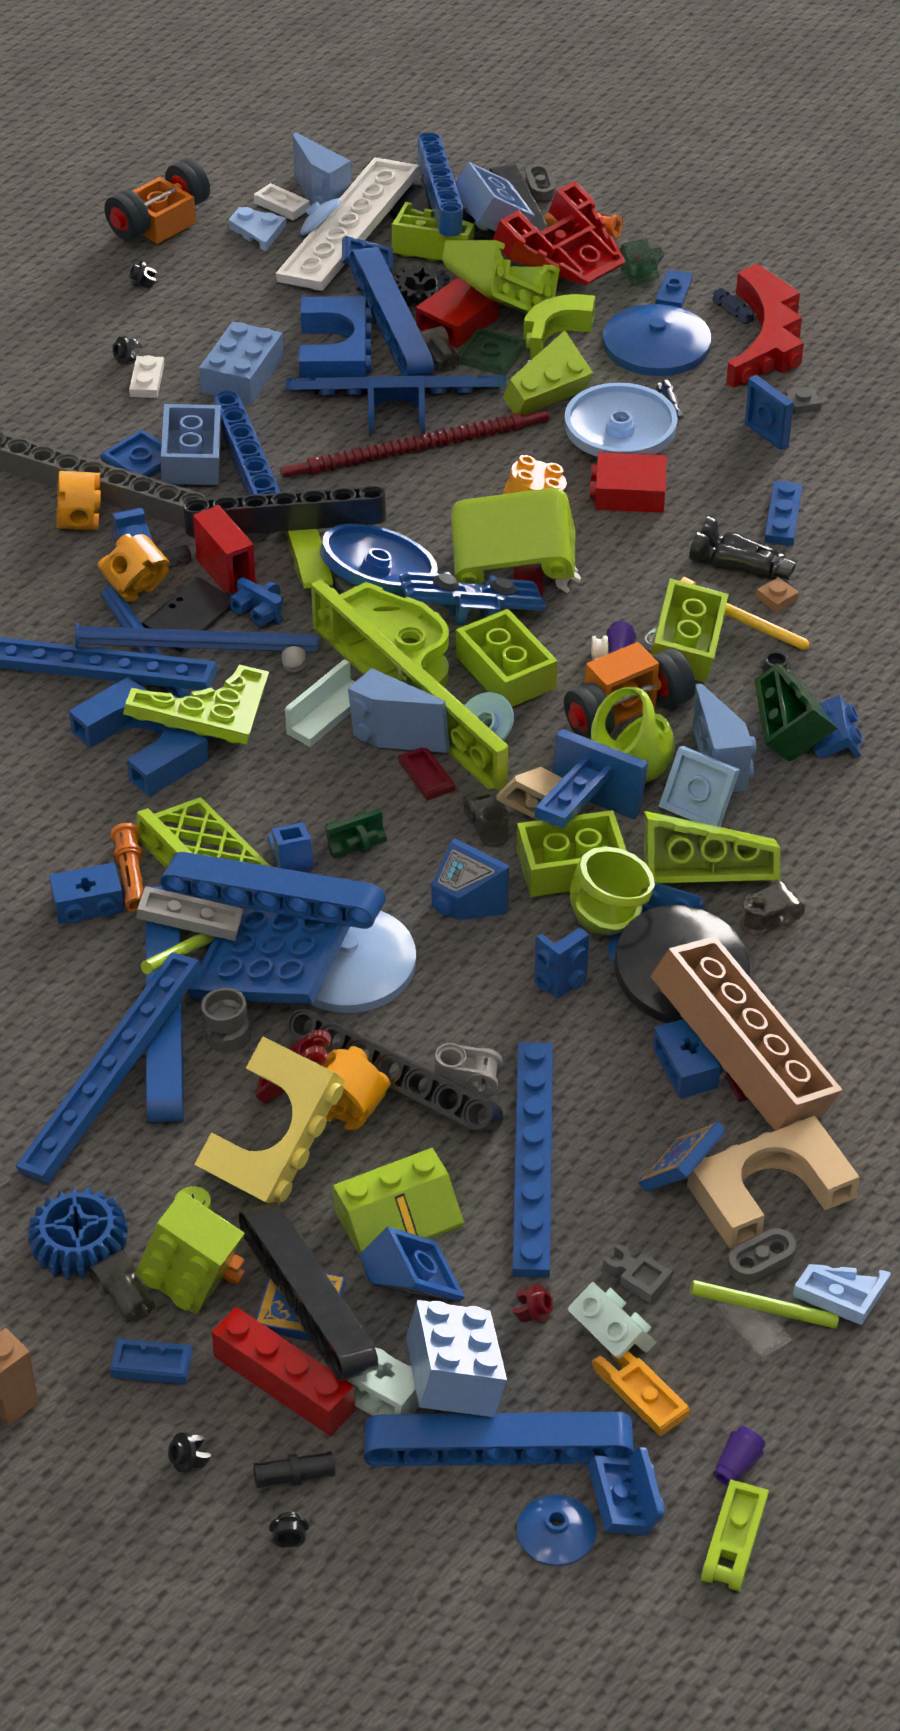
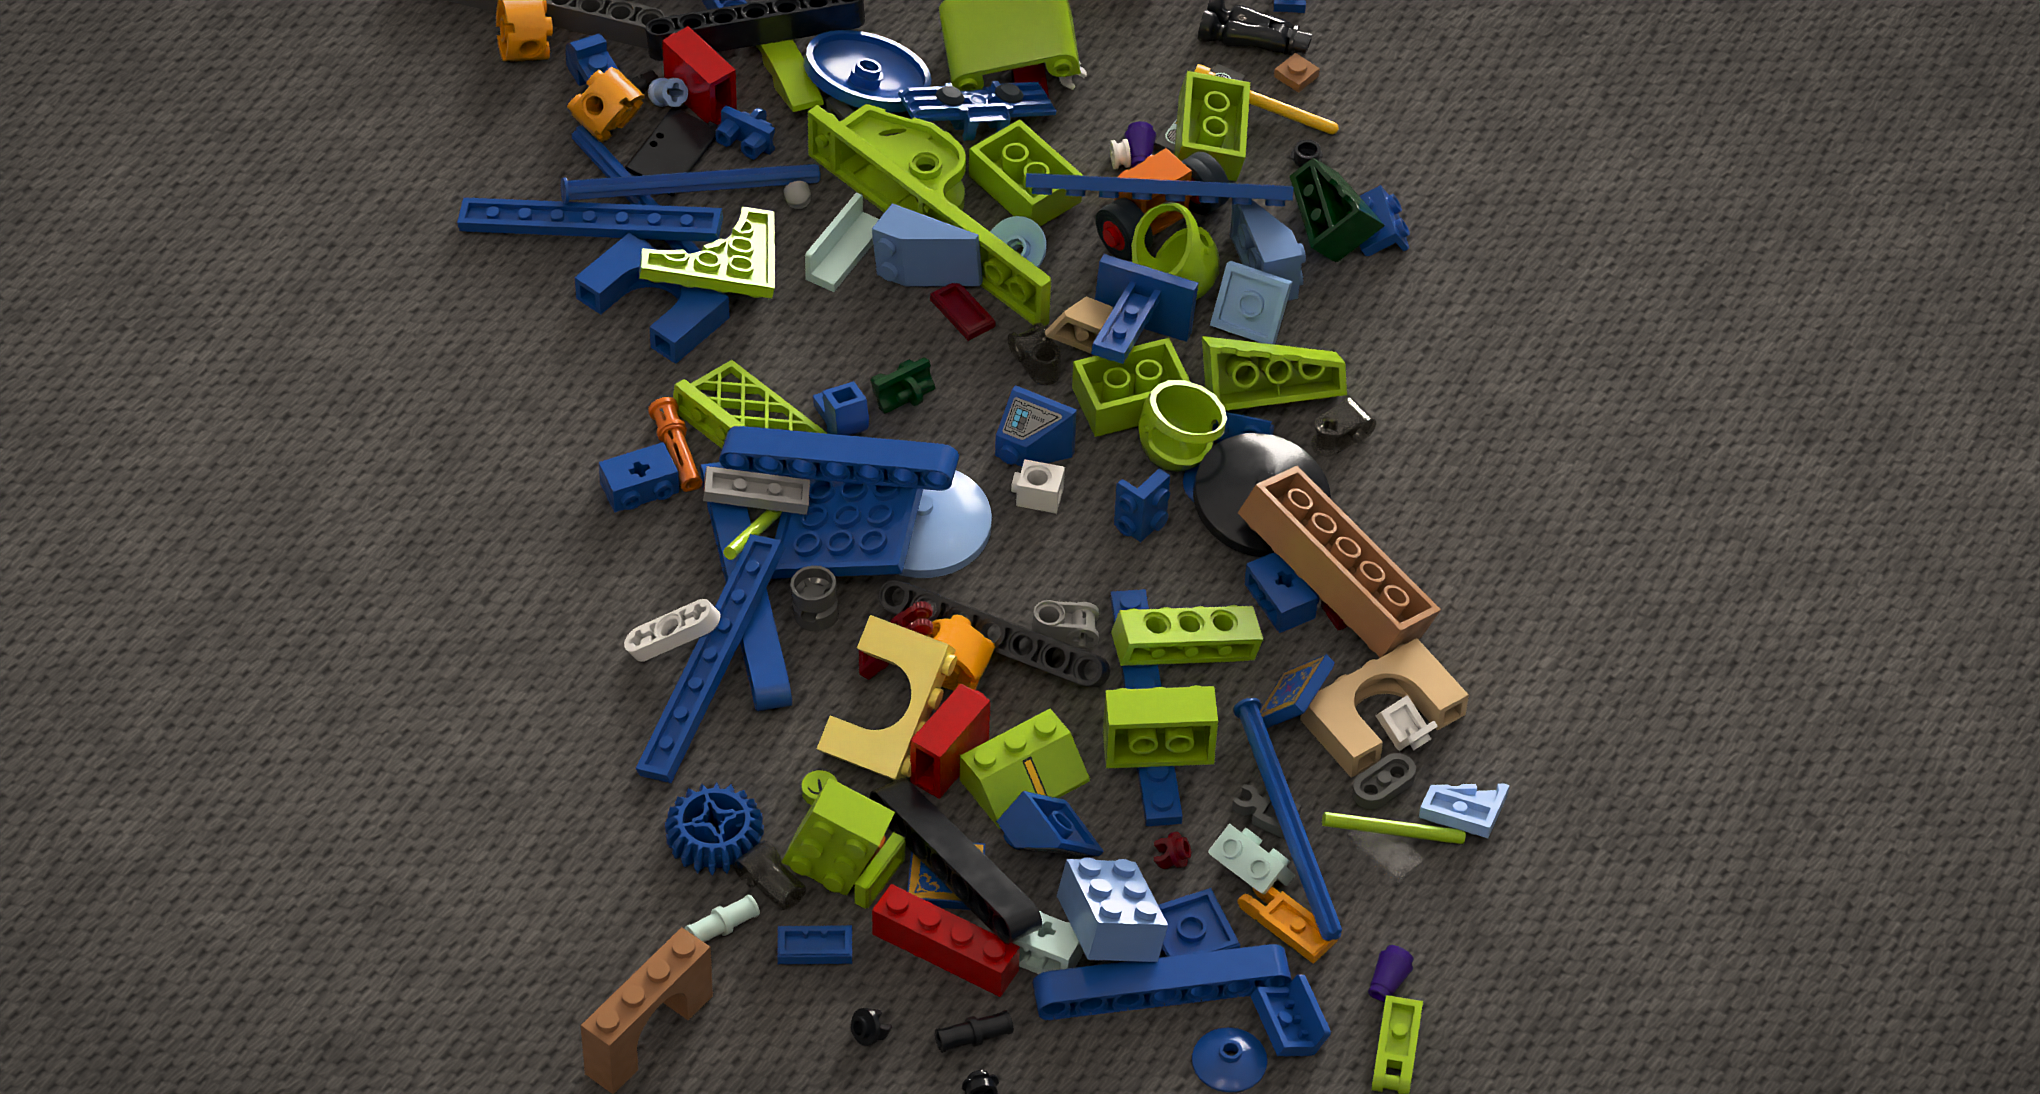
camera: 10 degrees left, 5 degrees up
(63, 1326) = (724, 919): none -> light aqua pin
(80, 1036) = (652, 638): none -> white beam
(188, 569) = (658, 92): none -> light blue bush
(232, 1292) = (880, 870): none -> lime tile
(327, 1159) = (950, 732): none -> red brick
(466, 936) = (1039, 486): none -> white brick
(536, 1176) = (1160, 727): none -> lime brick
(542, 1383) = (1196, 925): none -> blue tile
(583, 1090) = (1186, 635): none -> lime brick
(637, 676) = (1144, 188): none -> blue plate
(656, 1283) = (1305, 862): none -> blue axle
(791, 1200) = (1405, 724): none -> white bracket

